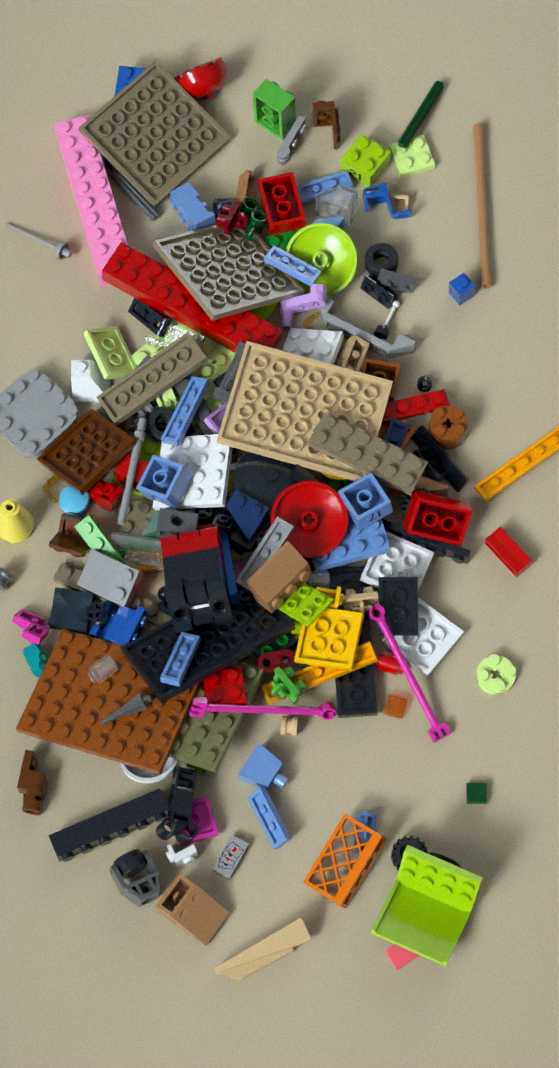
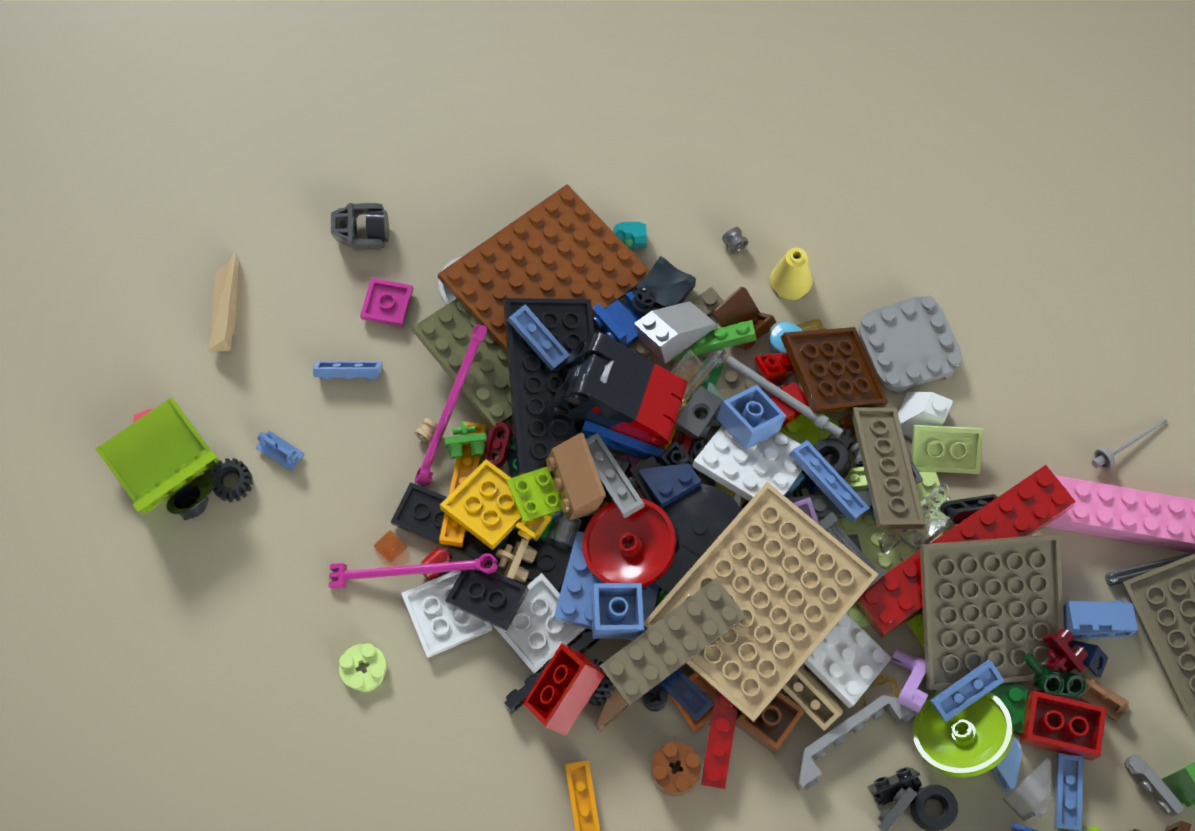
camera: 115 degrees right, 0 degrees up
(32, 785) = (508, 180): reddish brown plate -> none
(34, 628) = (669, 248): dark pink plate -> none
(102, 669) = (577, 274): clear brick -> none
(109, 825) = (427, 228): black brick -> none
(135, 705) = (520, 284): dark grey piece -> none
(180, 807) = (400, 286): black piece -> none
(182, 857) = (359, 270): white bracket -> none
(192, 909) = (302, 260): medium nougat slope -> none
(226, 687) = (489, 376): red plate -> none
(230, 857) = (334, 320): light grey tile -> none
(263, 769) = (398, 386): medium blue torso -> none
(359, 869) = (244, 424): orange fence -> none
(383, 331) = (839, 762): hinge -> none
(424, 388) = (747, 774): black hinge -> none
(440, 464) = (641, 731): black bracket -> none
(476, 793) = (252, 579): dark green tile -> none
(508, 552) = (491, 758): red piece -> none

